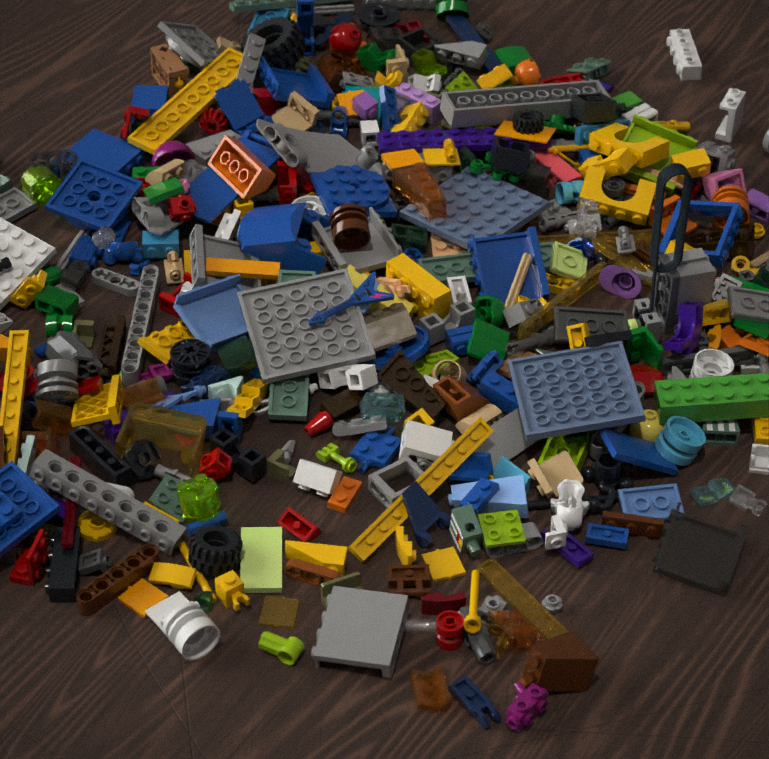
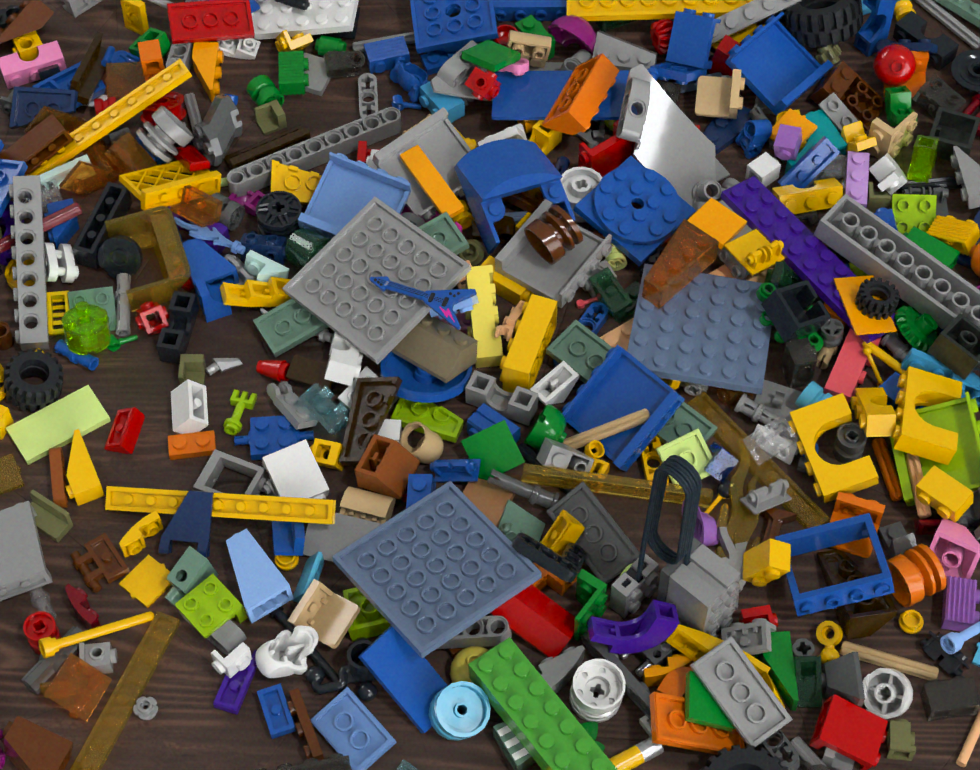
camera: 60 degrees right, 15 degrees up
(103, 237) = (409, 50): clear wheel -> none
(480, 494) = (235, 561): blue plate -> none

